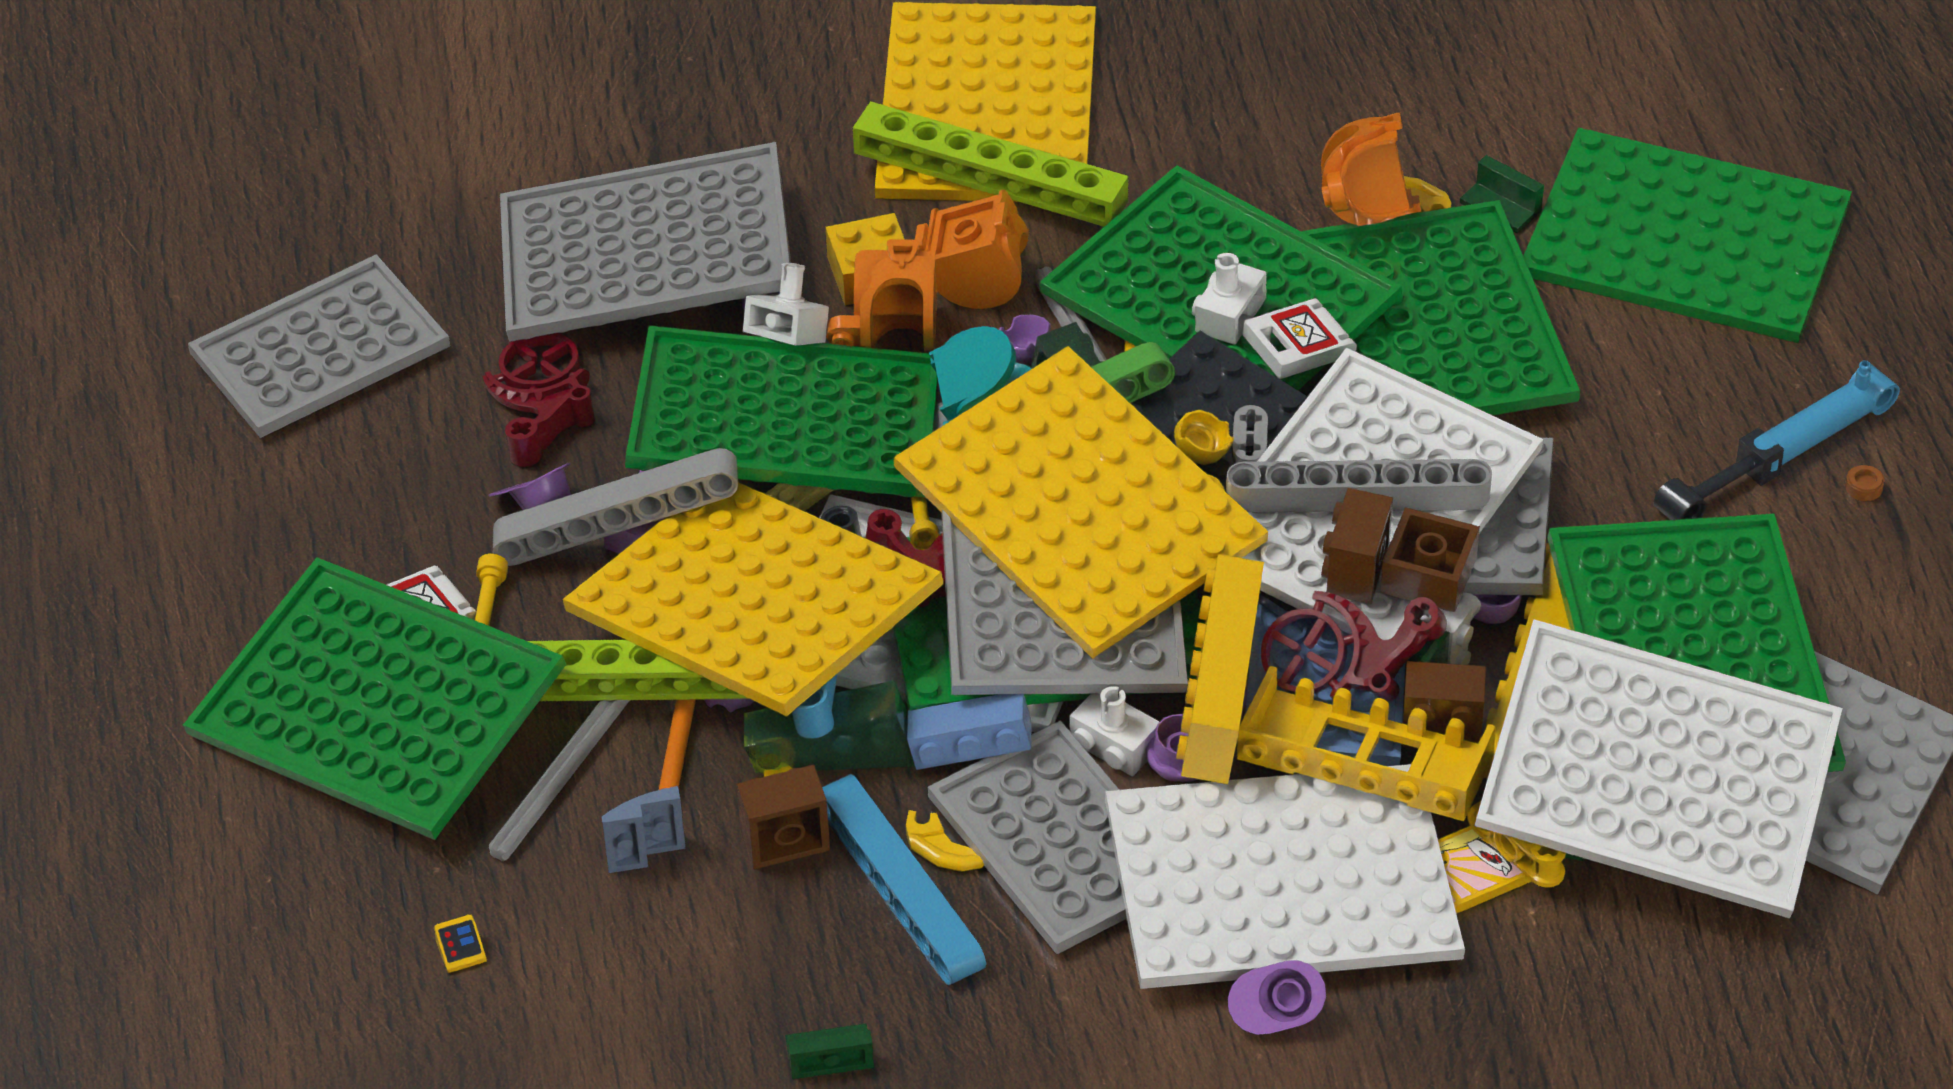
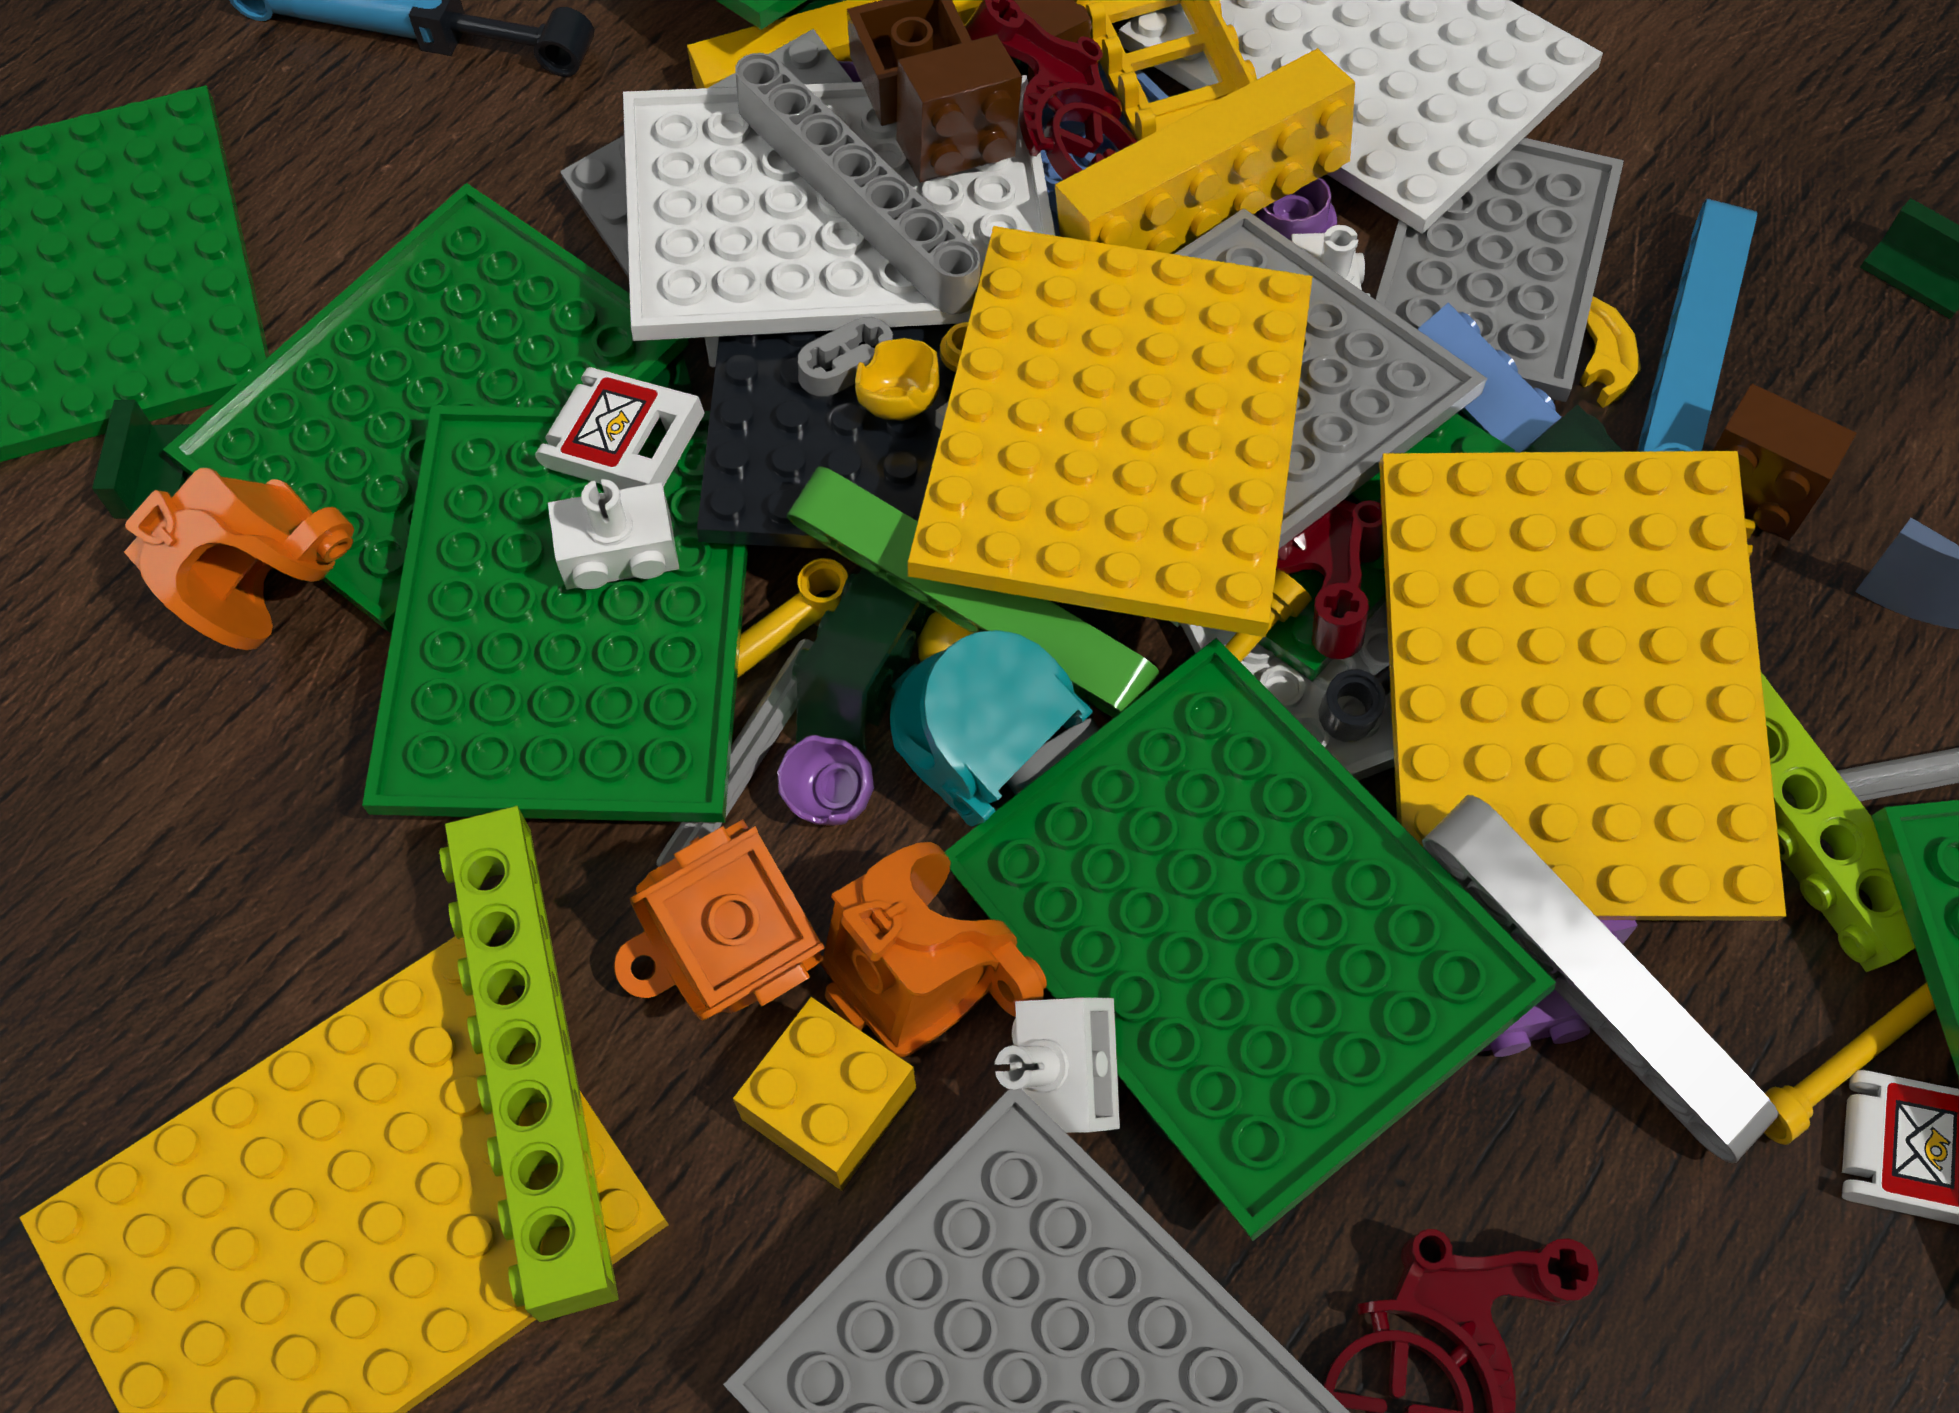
camera: 130 degrees left, 15 degrees up
(541, 490) = (1624, 1181): medium lavender piece -> none
(677, 743) = (1830, 641): orange piece -> none

